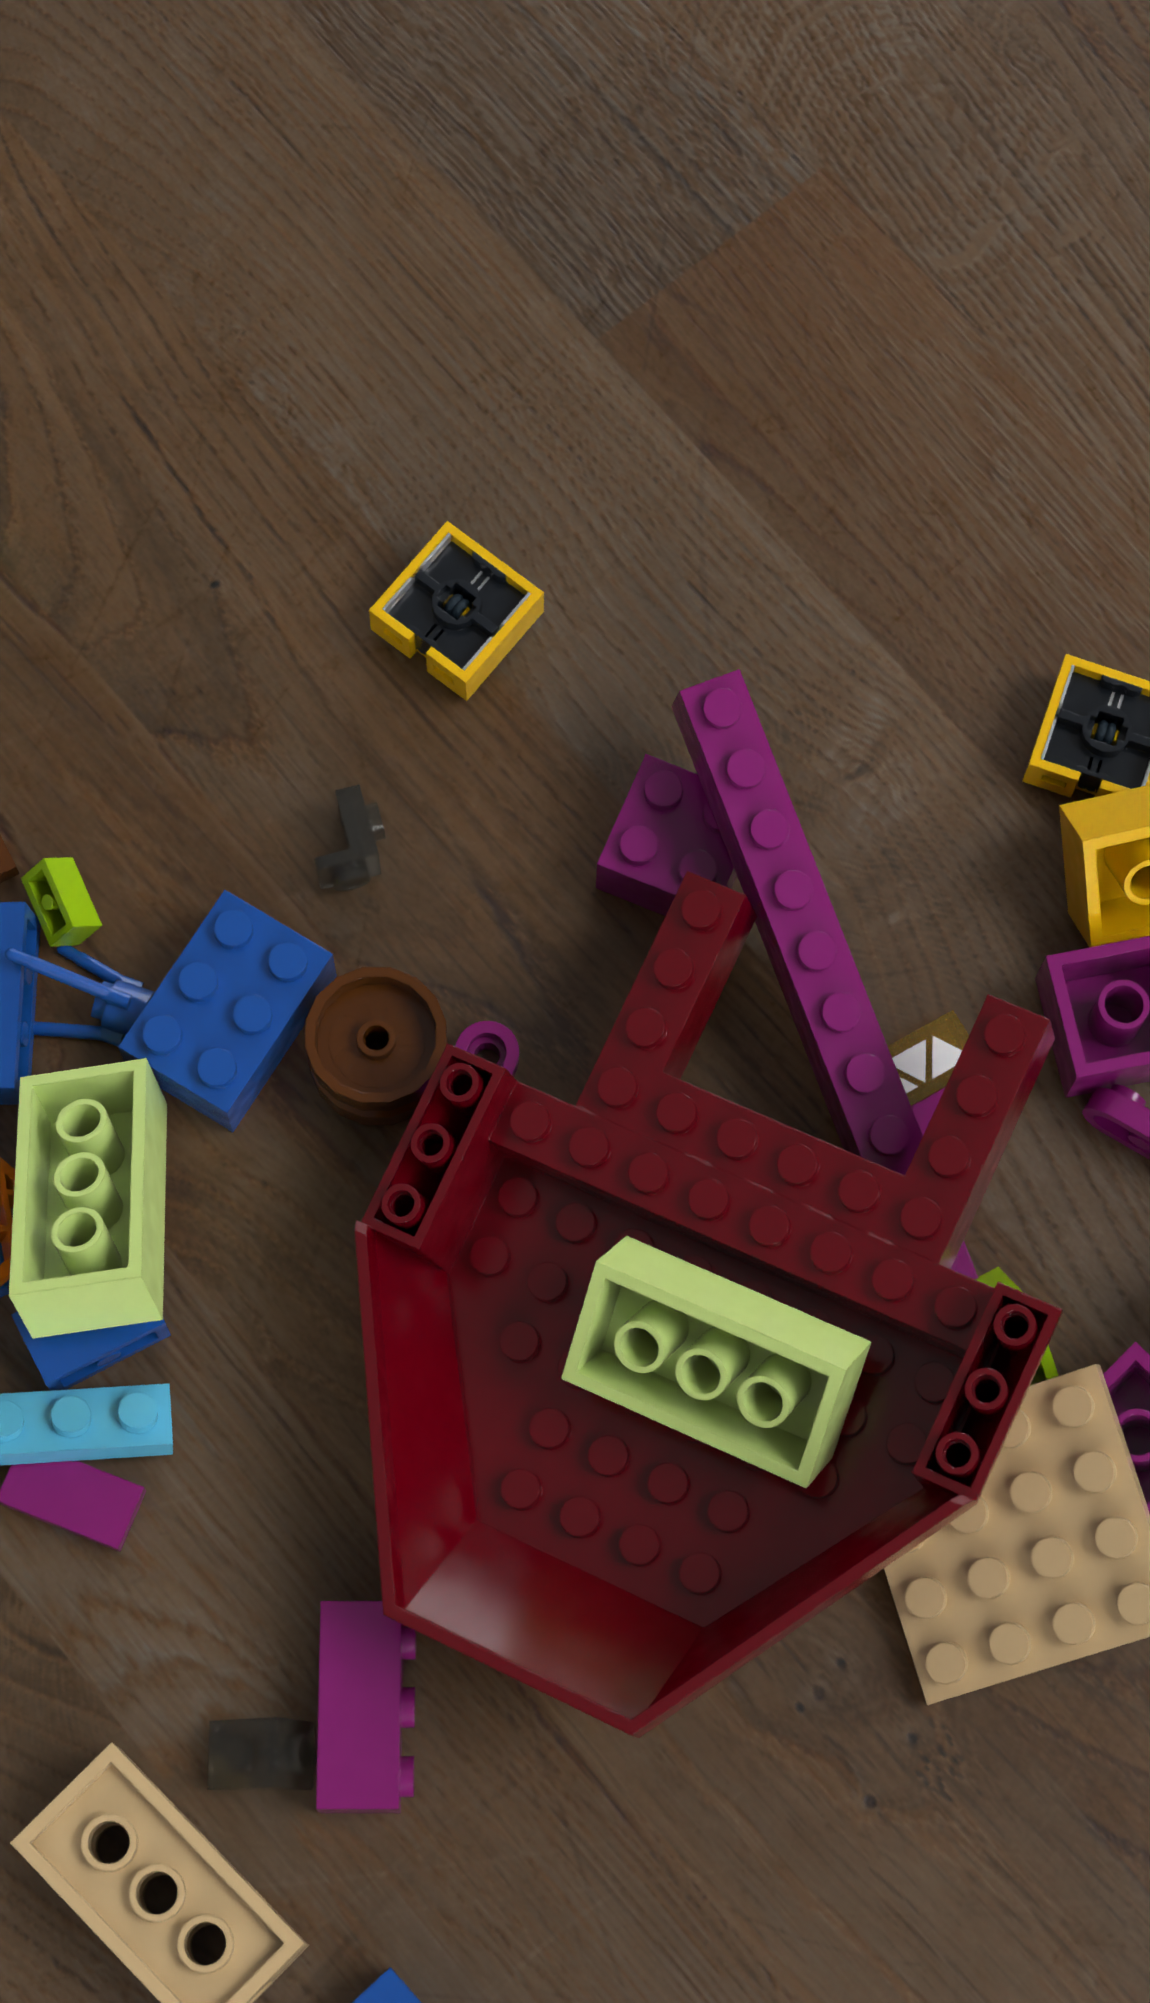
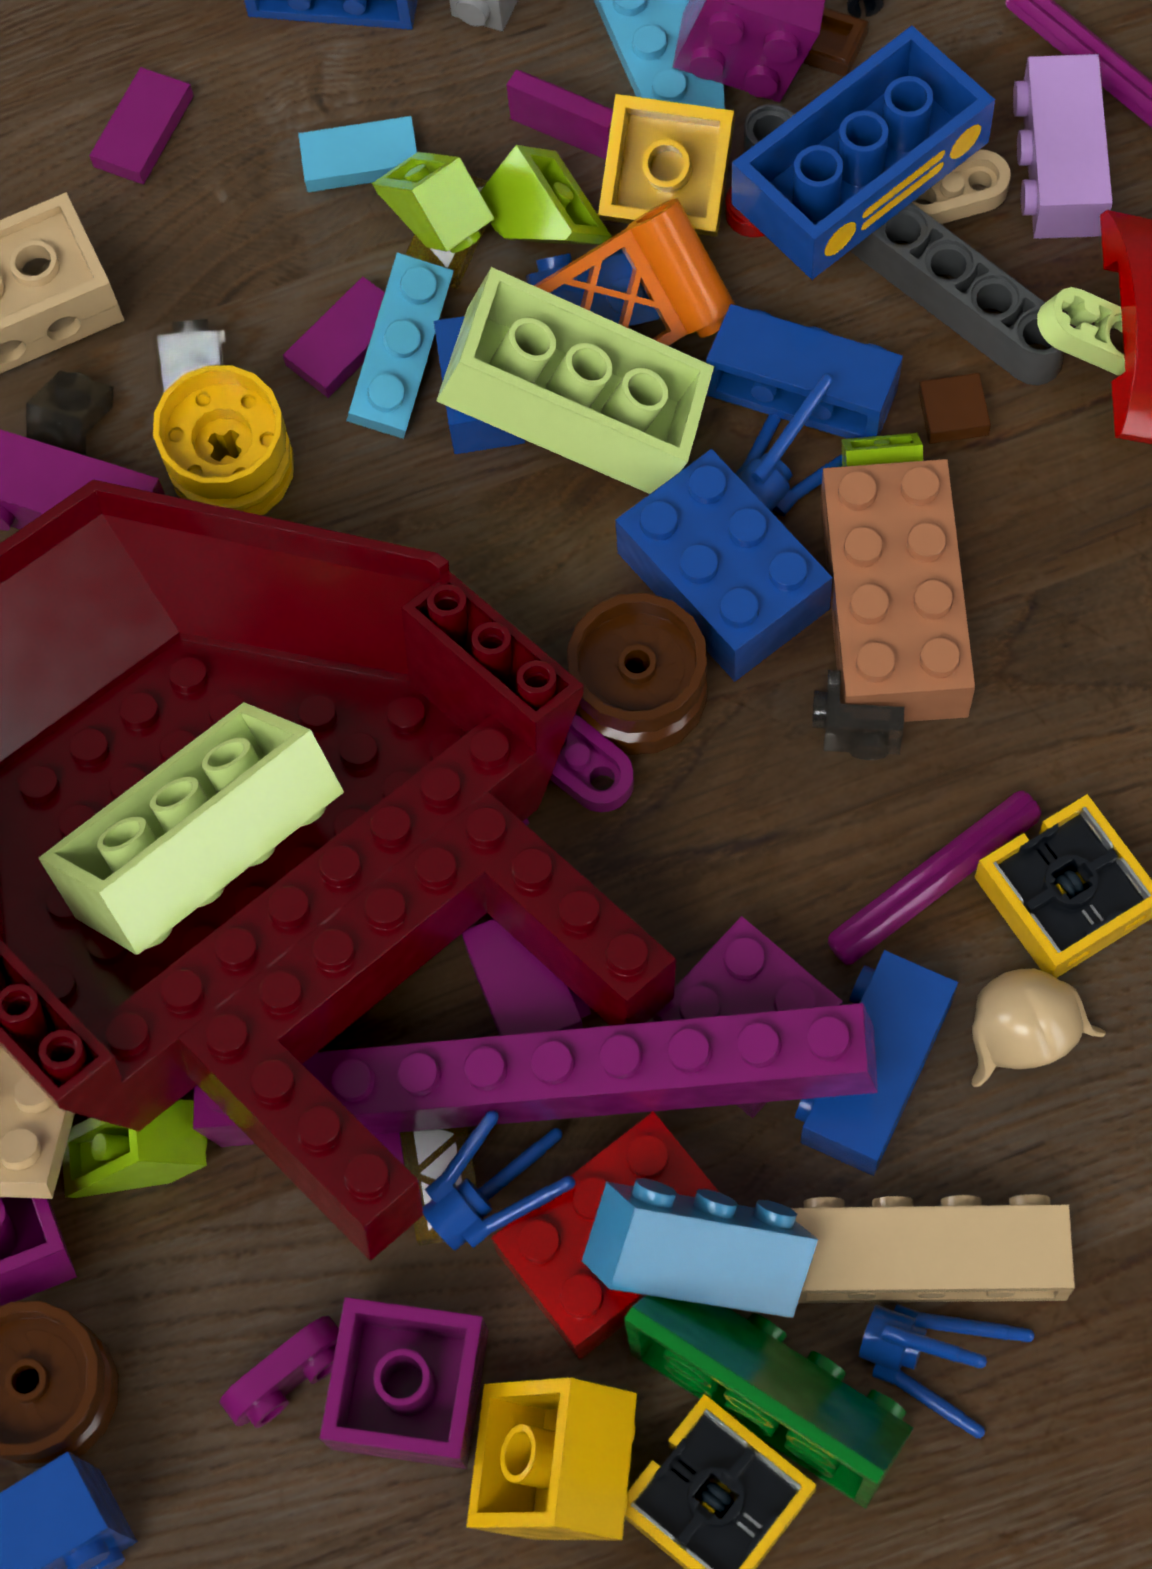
camera: 120 degrees right, 5 degrees down
(155, 1642) = (188, 349): none -> clear smoke bracket
(228, 826) = (897, 588): none -> nougat brick
(233, 1517) = (216, 417): none -> yellow wheel
(479, 733) = (933, 878): none -> magenta axle
(595, 614) = (1026, 1022): none -> tan hair
(634, 717) = (907, 1015): none -> blue brick
(737, 1041) = (518, 986): none -> magenta brick
(829, 635) = (938, 1251): none -> tan brick
(913, 642) = (899, 1338): none -> blue plant
(921, 889) = (549, 1243): none -> red brick
(925, 787) = (699, 1248): none -> dark azure brick
(951, 1014) = (460, 1210): none -> blue plant
(1001, 711) = (773, 1390): none -> green slope

